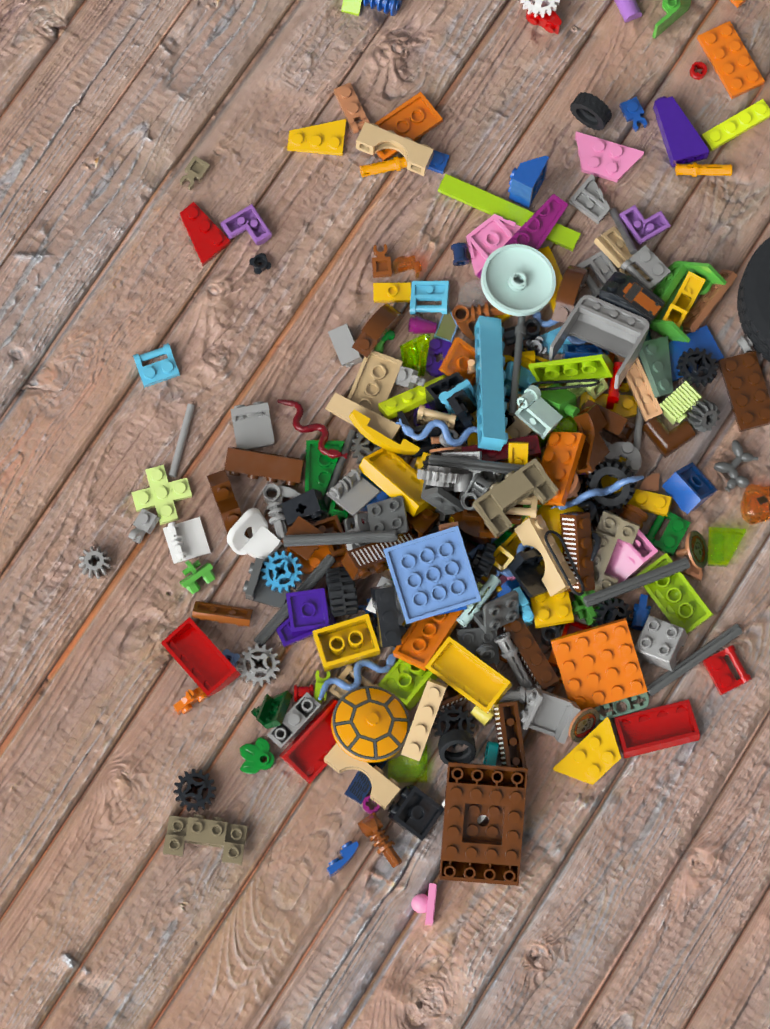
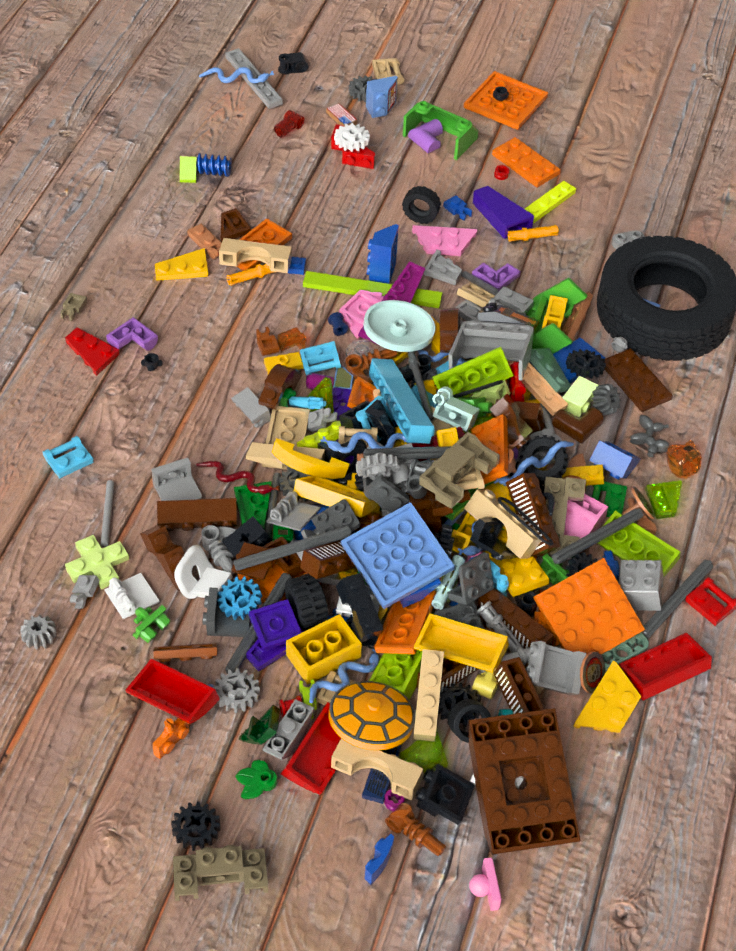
camera: 15 degrees left, 25 degrees down
(383, 92) = (233, 225): none -> reddish brown wing
(404, 355) = (307, 402): none -> medium azure piece

